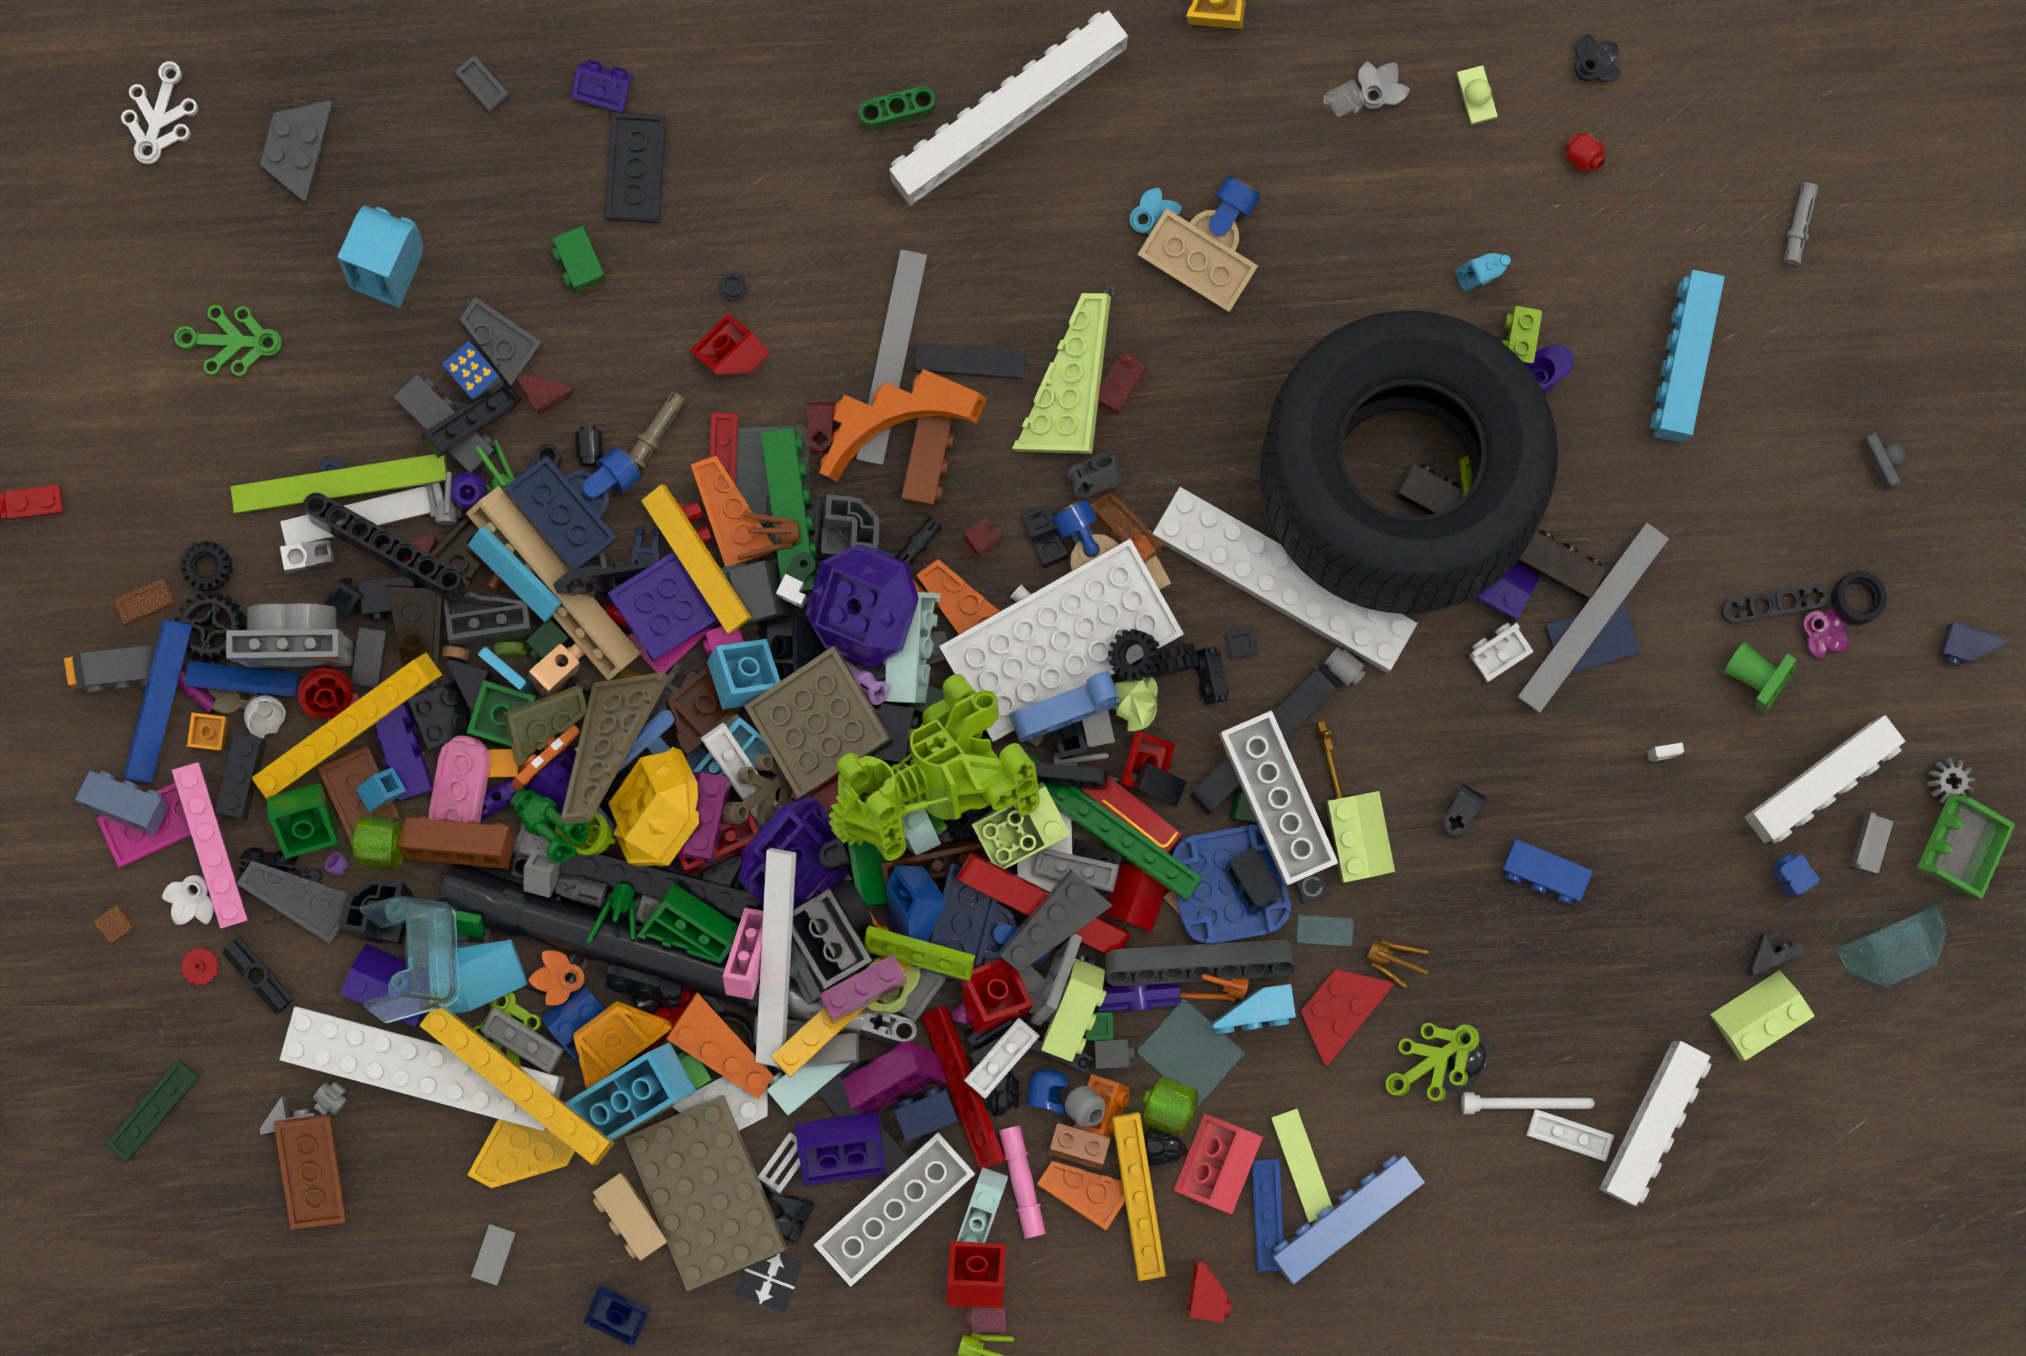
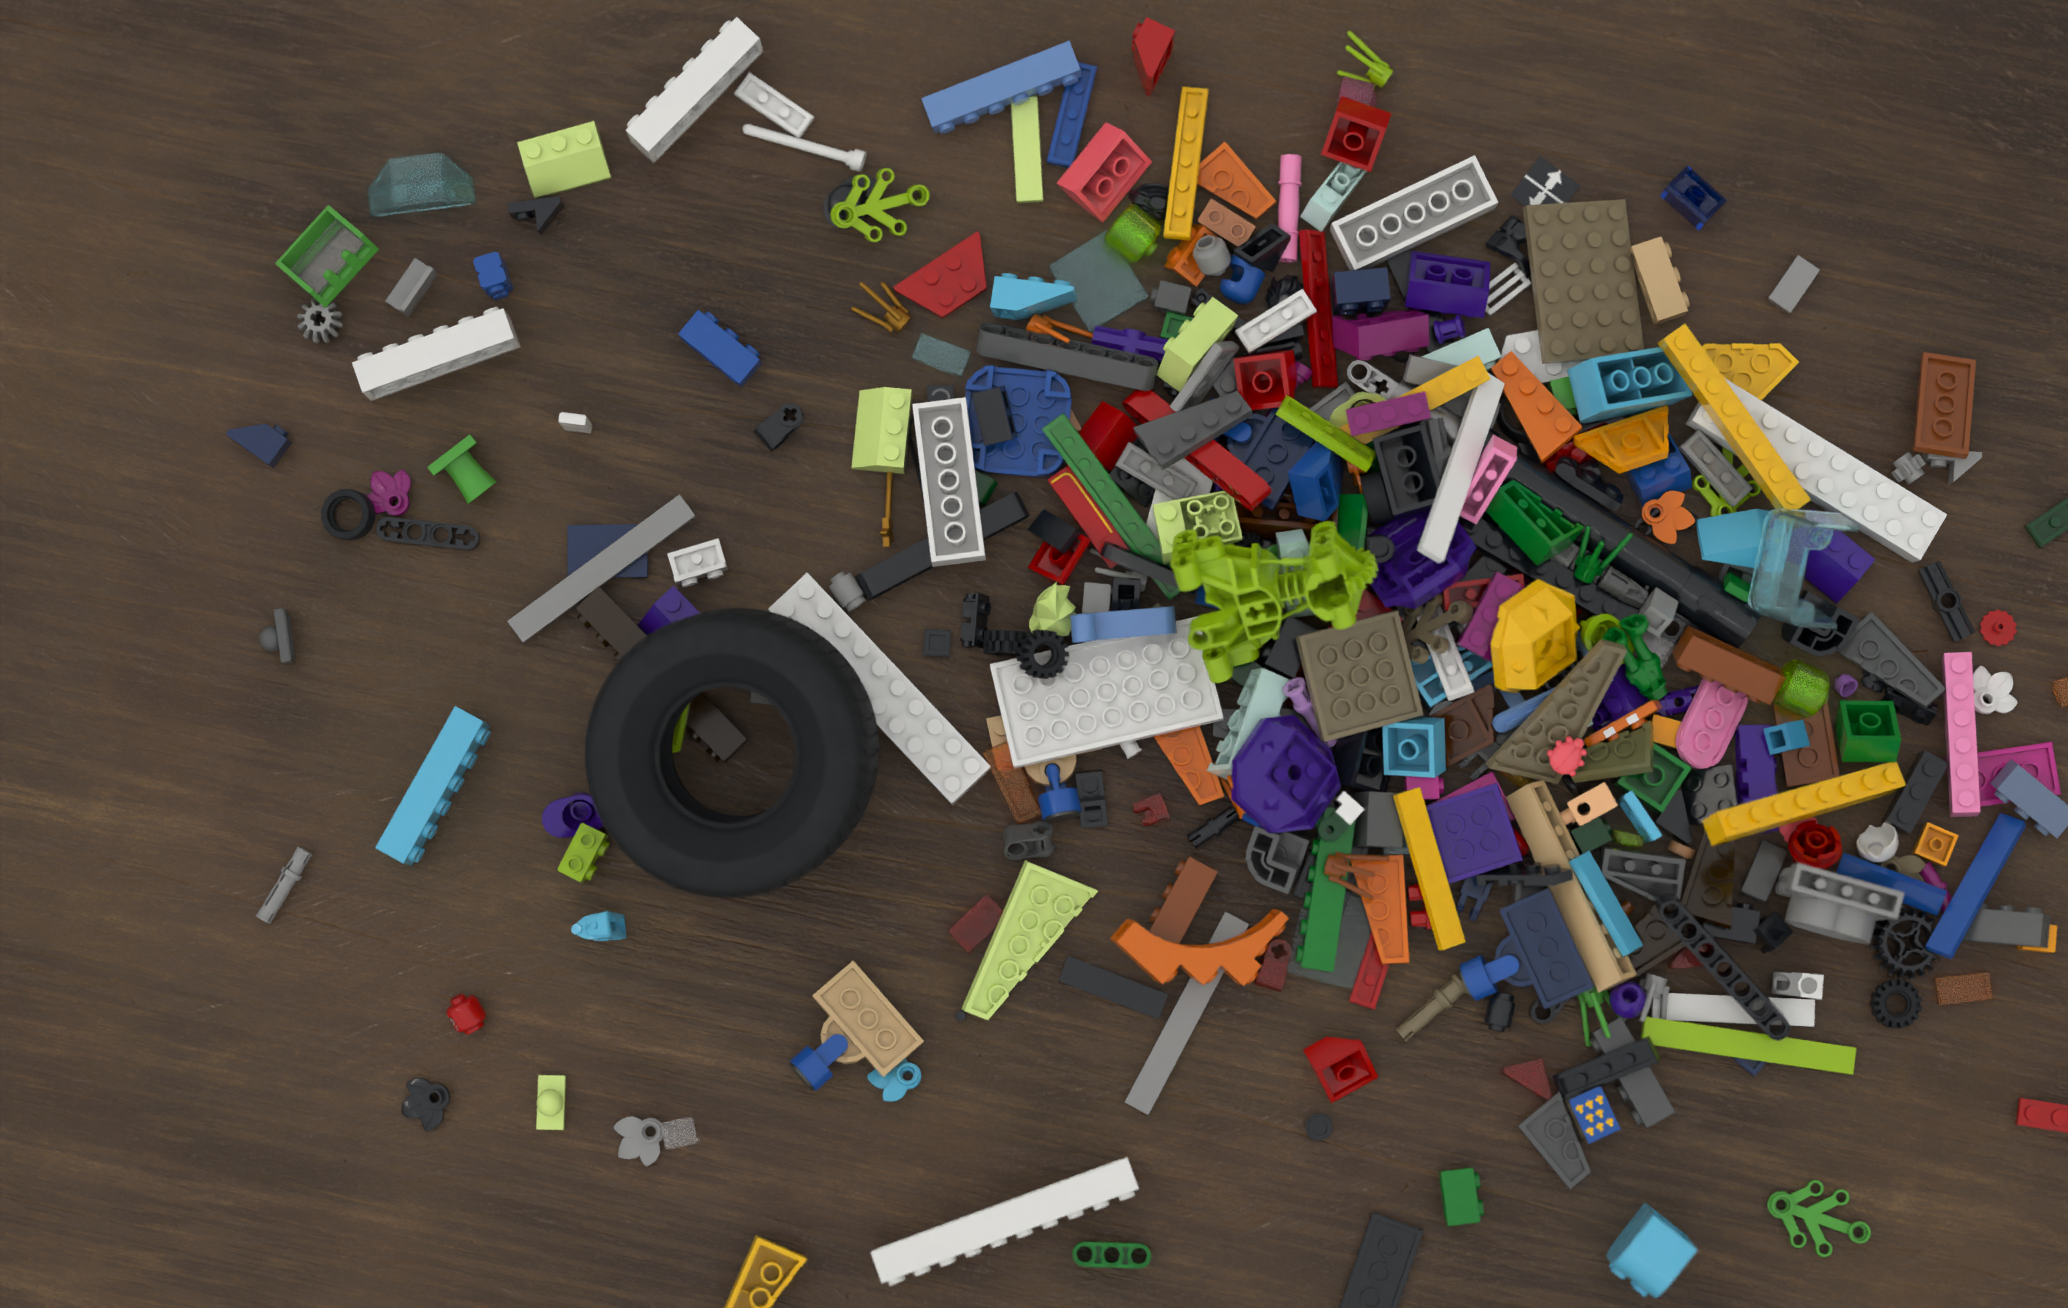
camera: 160 degrees left, 0 degrees up
(591, 707) = (1567, 756): none -> coral piece
(826, 1102) = (1449, 329): none -> dark purple bush
(1035, 1129) = (1264, 248): none -> black slope

